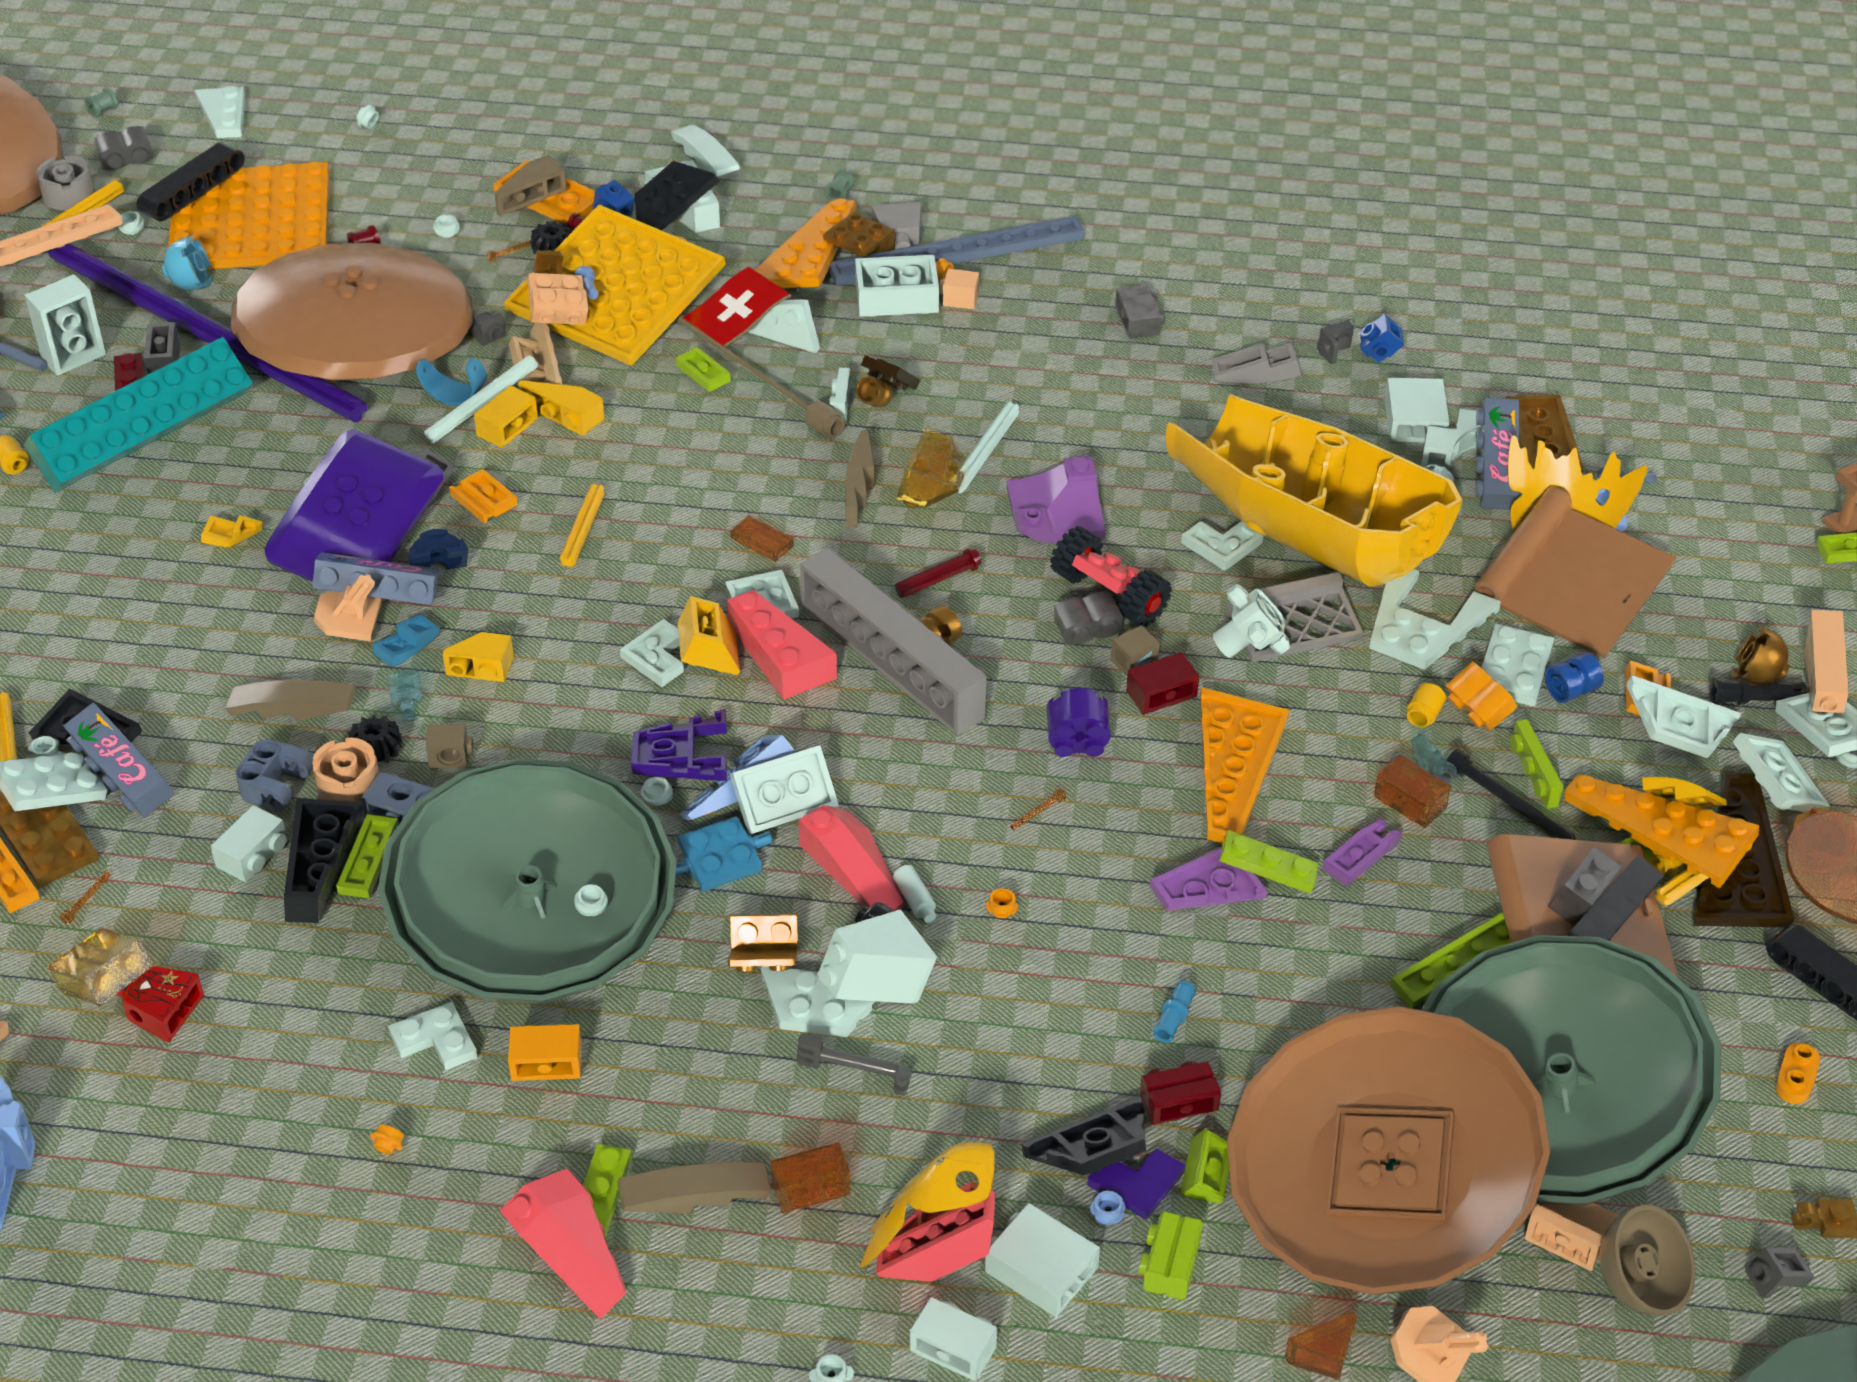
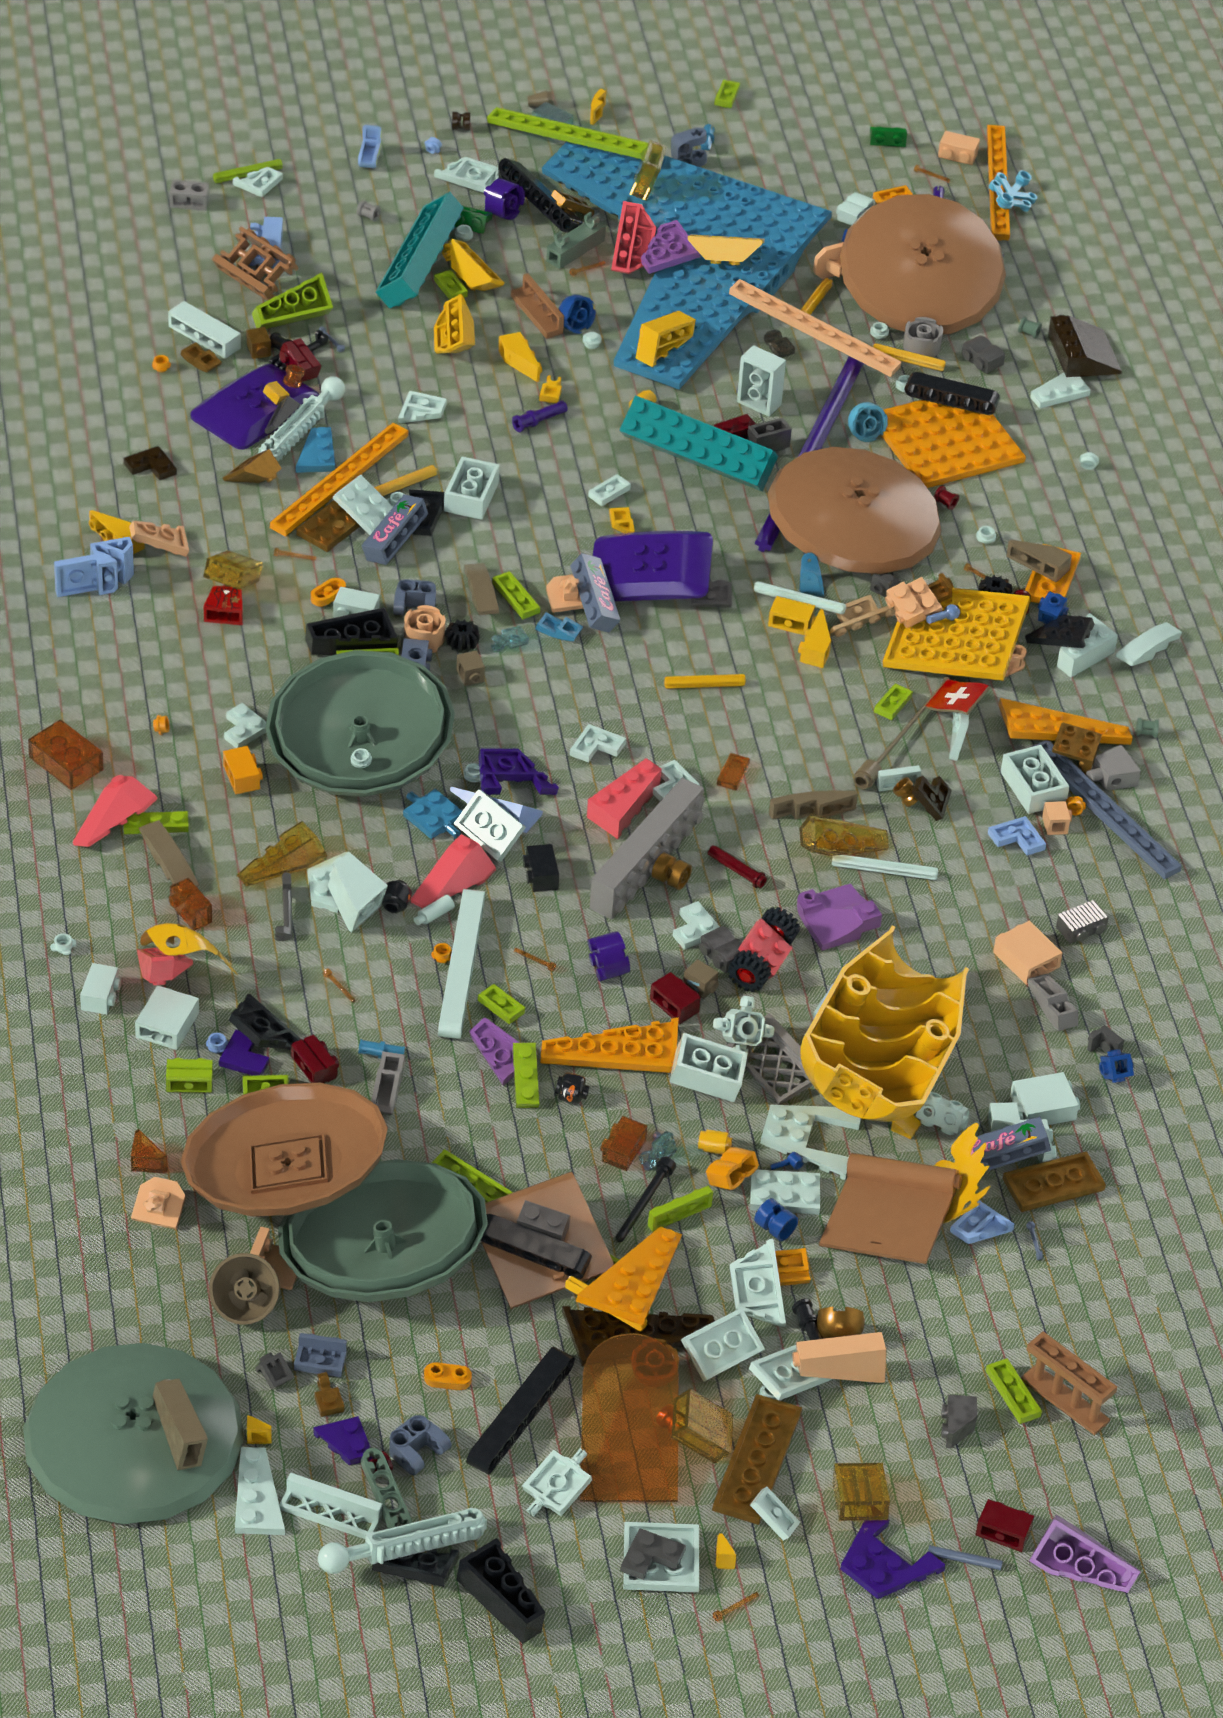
camera: 70 degrees right, 0 degrees up
(16, 219) = (879, 330): none -> light aqua plate
(79, 657) = (471, 488): none -> light aqua brick
(162, 527) = (609, 490): none -> light aqua plate
(168, 75) = (1081, 348): none -> dark brown slope
(198, 871) = (326, 592): none -> light orange plate
(323, 665) = (516, 595): none -> lime plate
(404, 1281) = (65, 754): none -> clear orange brick
(438, 547) = (637, 612): dark blue cylinder -> none
(480, 657) = (555, 663): yellow slope -> none
(483, 496) = (708, 626): light orange plate -> none
(707, 637) = (610, 758): yellow slope -> none
(746, 1034) = (293, 853): none -> clear yellow wedge
(763, 941) = (364, 845): bracket -> none
(876, 758) = (541, 867): none -> black brick
(973, 322) = (1018, 831): none -> light blue plate
(997, 1043) = (328, 973): none -> clear orange piece
(1031, 632) = (698, 923): none -> light aqua plate
(1034, 885) = (461, 964): none -> light aqua beam
(1121, 860) = (501, 1004): none -> lime plate
(1173, 364) = (1027, 951): none -> light nougat brick
(1243, 1017) = (388, 1081): none -> light grey slope
(1304, 820) = (571, 1088): none -> black head
(1310, 673) = (708, 1067): none -> light aqua brick
(1361, 852) = (559, 1125): medium lavender hinge -> none
(1466, 643) = (793, 1159): none -> blue hand
(1682, 791) = (671, 1282): yellow slope -> none
(1762, 1208) = (321, 1354): none -> sand blue bracket

